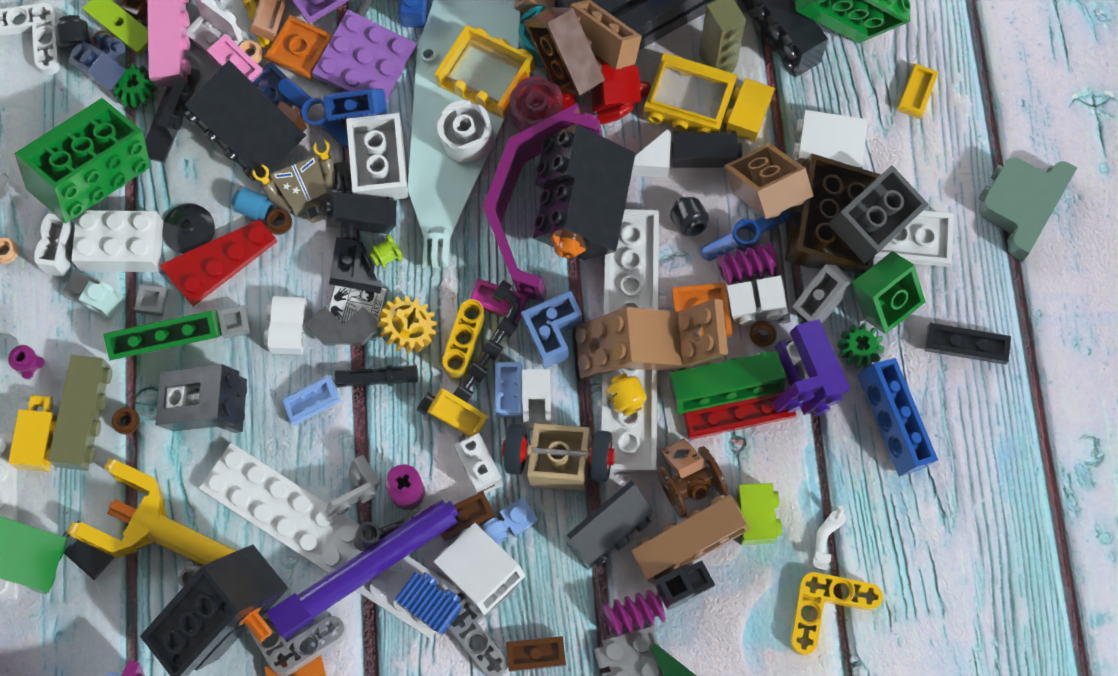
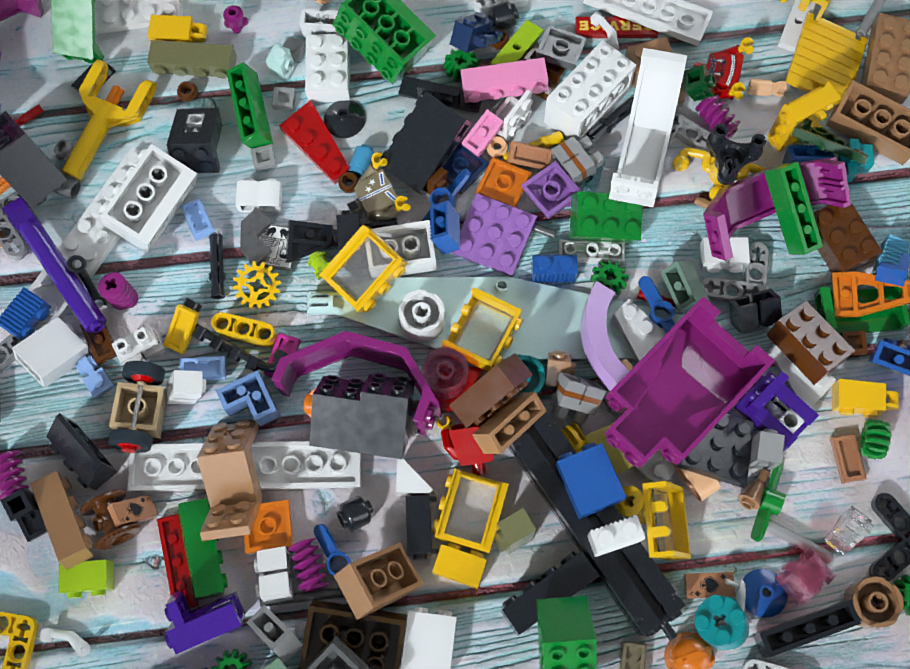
camera: 90 degrees right, 0 degrees up
(134, 634) = (29, 115): none -> red pin
(284, 448) = (156, 210): none -> white brick
(362, 476) = (133, 259): light grey bracket -> none
(405, 188) = (364, 269): none -> window
(626, 394) = (185, 462): yellow head -> none
(763, 340) = (246, 581): reddish brown plate -> none

